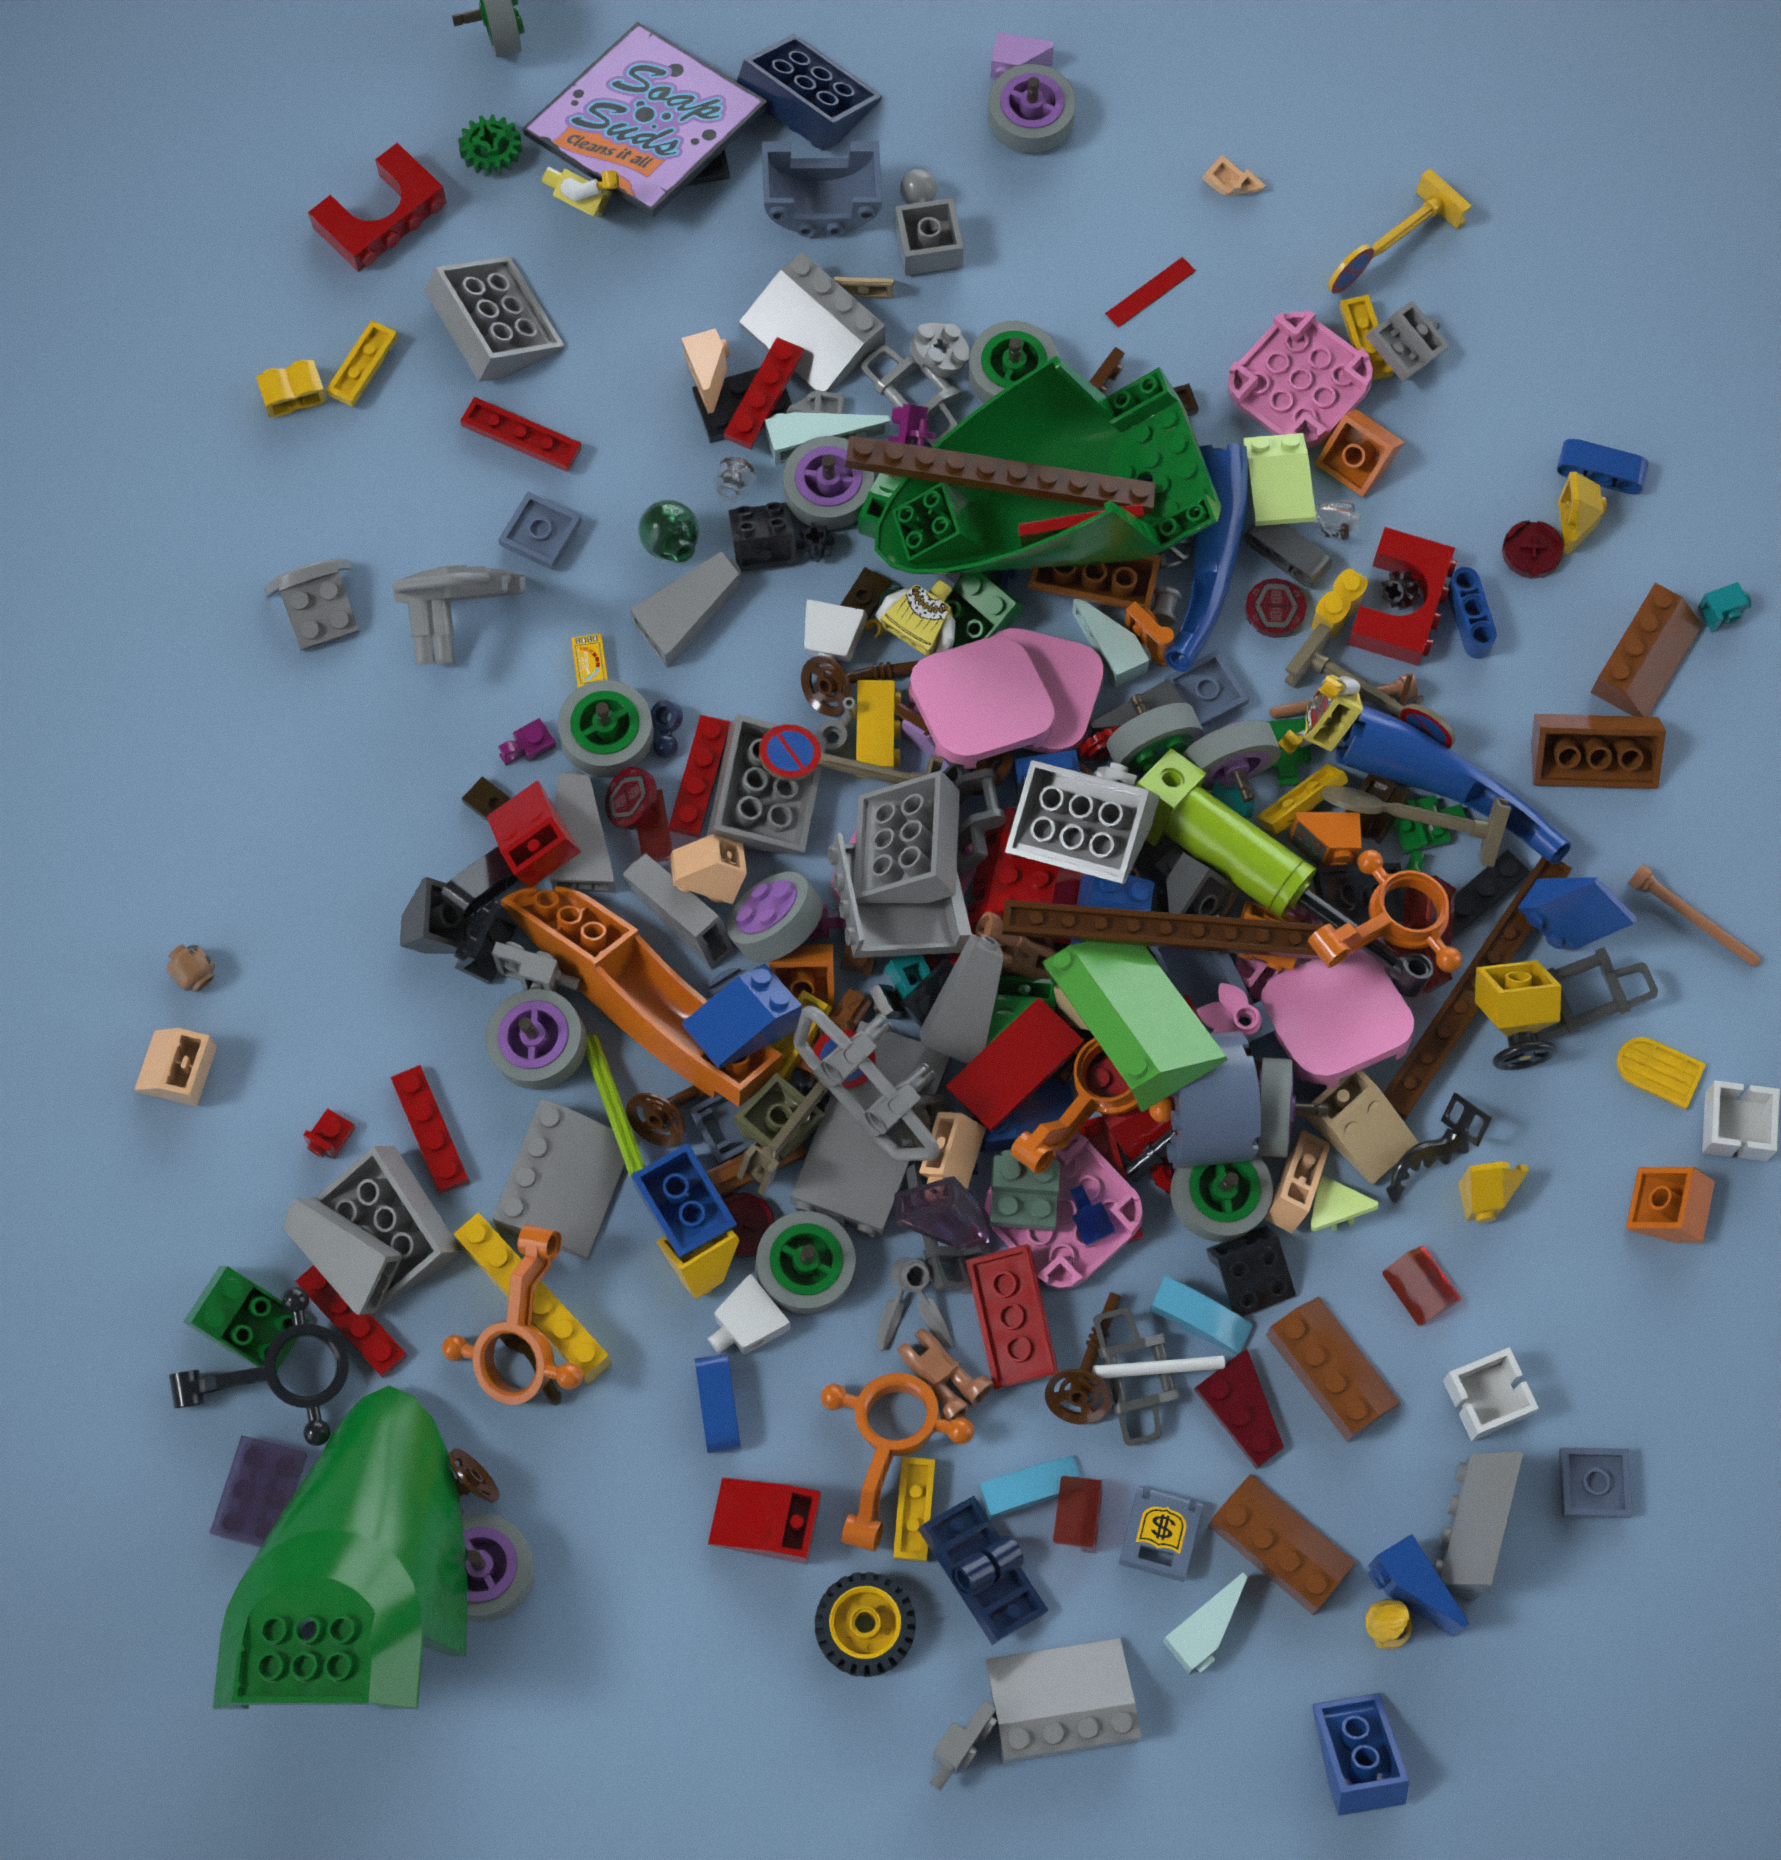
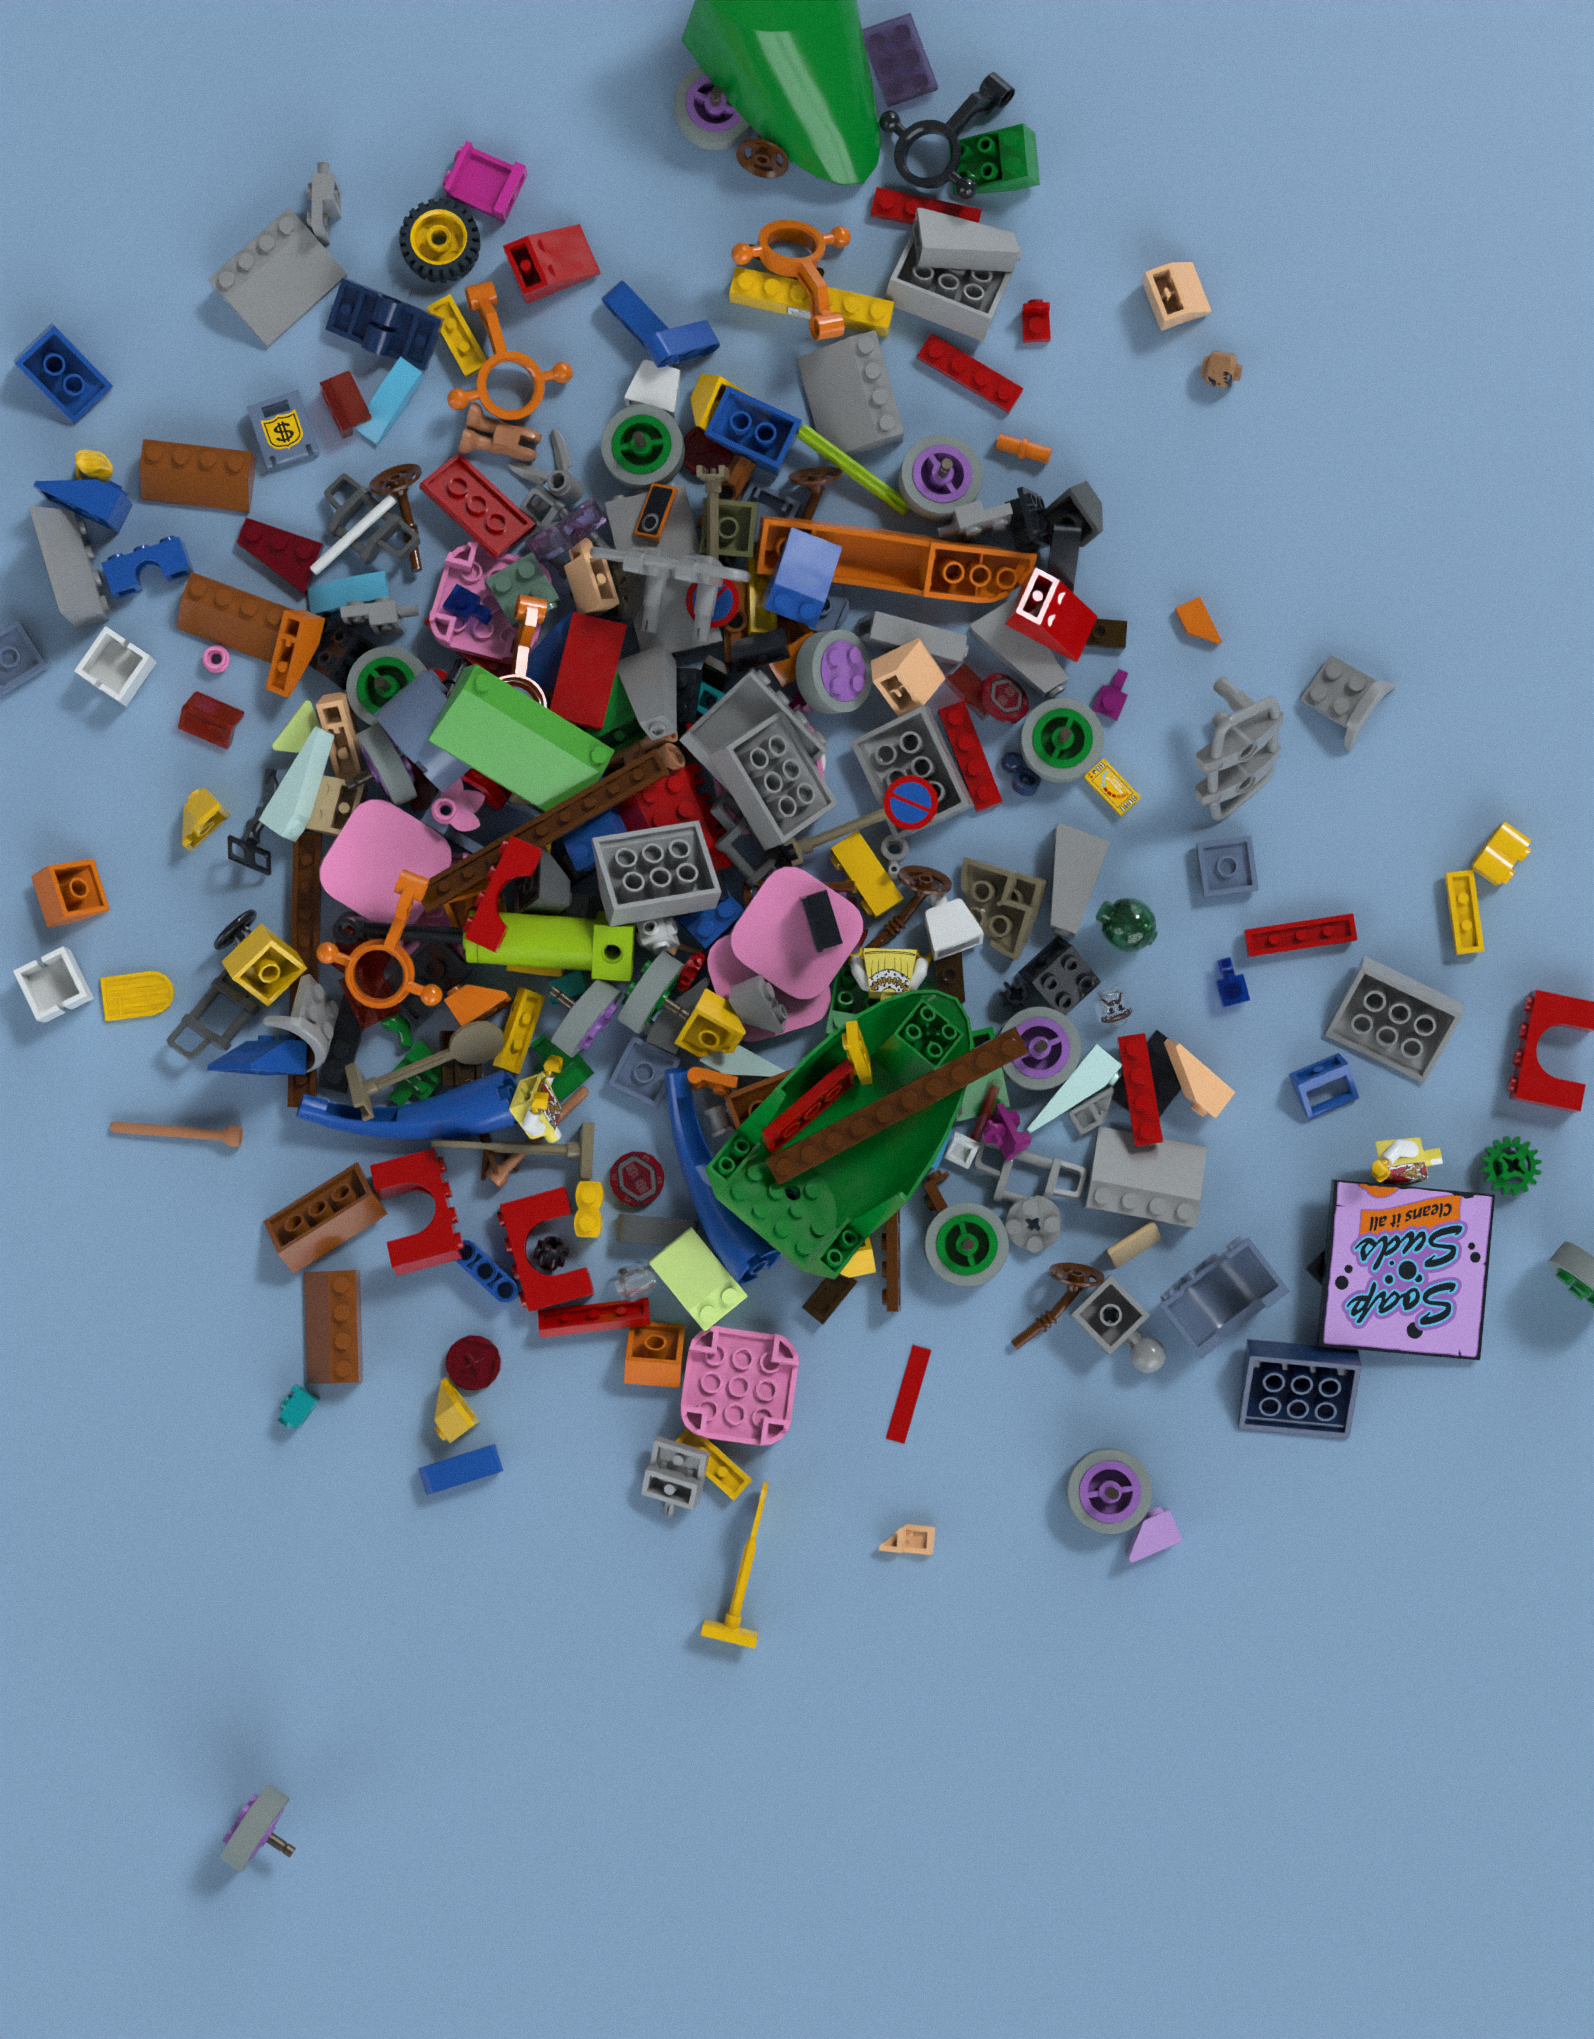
camera: 145 degrees right, 15 degrees up
(397, 759) = (1197, 621): none -> orange tile
(434, 1020) = (1023, 448): none -> orange pin
(597, 312) = (1318, 1075): none -> blue tile
(614, 430) = (1231, 988): none -> clear blue plate
(693, 1337) = (682, 343): none -> blue beam
(767, 627) = (1002, 903): none -> dark tan brick
(774, 1657) = (484, 182): none -> dark pink panel
(830, 980) = (760, 649): none -> black panel
(838, 1180) = (656, 512): none -> slope
(941, 277) = (1075, 1277): none -> reddish brown dish
(953, 687) = (821, 920): none -> black panel
(1005, 537) = (857, 1052): none -> yellow plate
(1063, 662) = (757, 1006): none -> light grey slope
(1117, 675) = (711, 1027): none -> yellow slope
(1183, 1263) = (382, 615): none -> light grey plate
(1202, 1632) = (214, 381): light aqua slope -> none
(1211, 905) = (517, 861): none -> red arch
(1295, 1286) = (294, 648): none -> orange slope
(1364, 1478) = (125, 570): none -> blue arch
(1383, 1334) = (212, 652): none -> bright pink plate
(1386, 1137) = (296, 795): none -> light aqua slope
(1395, 512) = (593, 1317): none -> red plate
(1501, 649) = (439, 1240): none -> red arch
(1501, 916) = (311, 1019): none -> light grey piece

